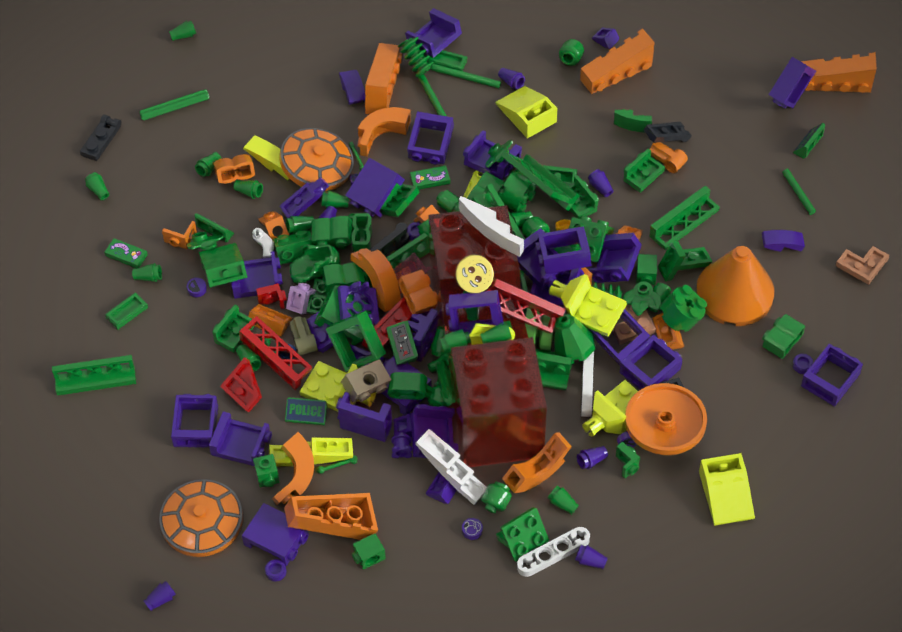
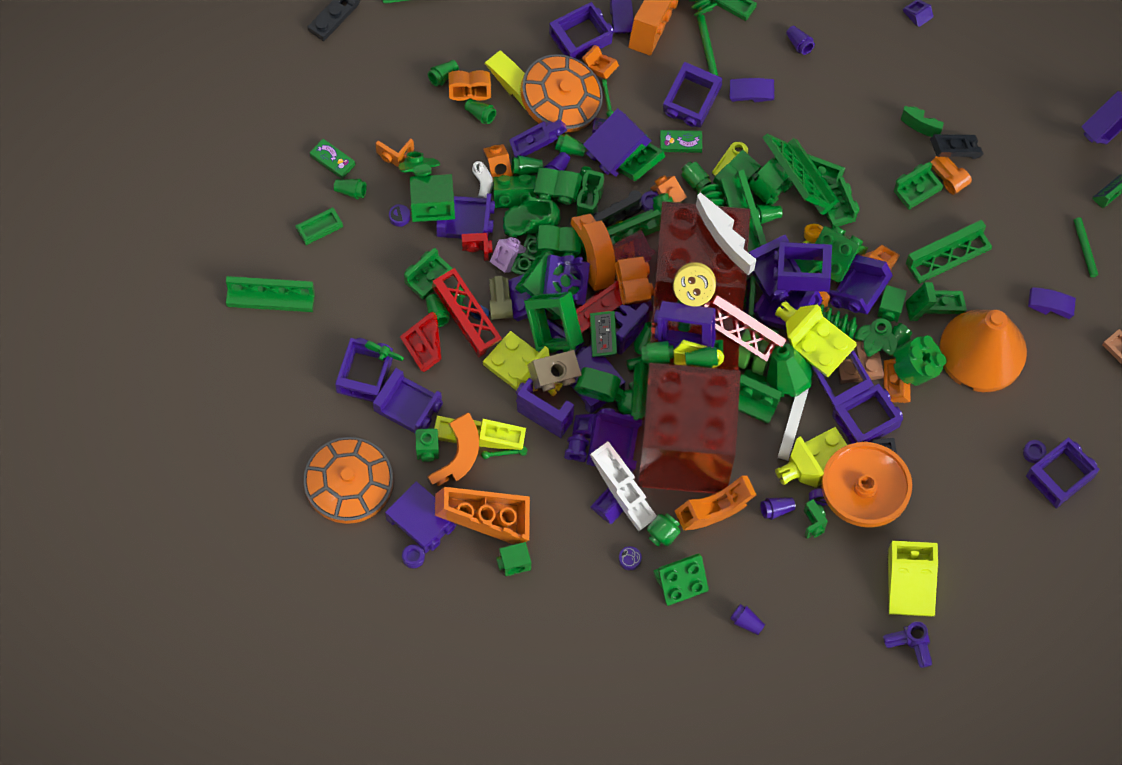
camera: 10 degrees right, 10 degrees up
(97, 185) = (317, 71): green cone -> none
(160, 595) = (287, 557): dark purple cone -> none
(209, 399) = (384, 351): none -> green piece
(212, 227) = (432, 148): green slope -> none
(274, 320) = (470, 270): orange slope -> none
(306, 411) = (484, 385): slope -> none
(308, 119) = (589, 11): none -> dark purple window
(345, 130) = (600, 64): none -> orange bracket
(382, 121) = (642, 63): orange arch -> none
(464, 75) = (750, 26): green bar -> none
(476, 124) = (752, 89): none -> dark purple slope
(477, 156) = (747, 129): dark purple panel -> none
(496, 151) = (760, 129): green plate -> none
(528, 110) = (808, 84): neon yellow slope -> none
(532, 225) = (780, 226): green head -> none
(551, 548) = (708, 600): white beam -> none
(563, 500) = (734, 549): green cone -> none
(571, 52) = (874, 23): green head -> none
(600, 182) = (867, 188): dark purple cone -> none
(619, 63) = (924, 49): orange wedge -> none
(748, 544) = (920, 645): none -> dark purple axle
(783, 336) = (1021, 415): green brick -> none

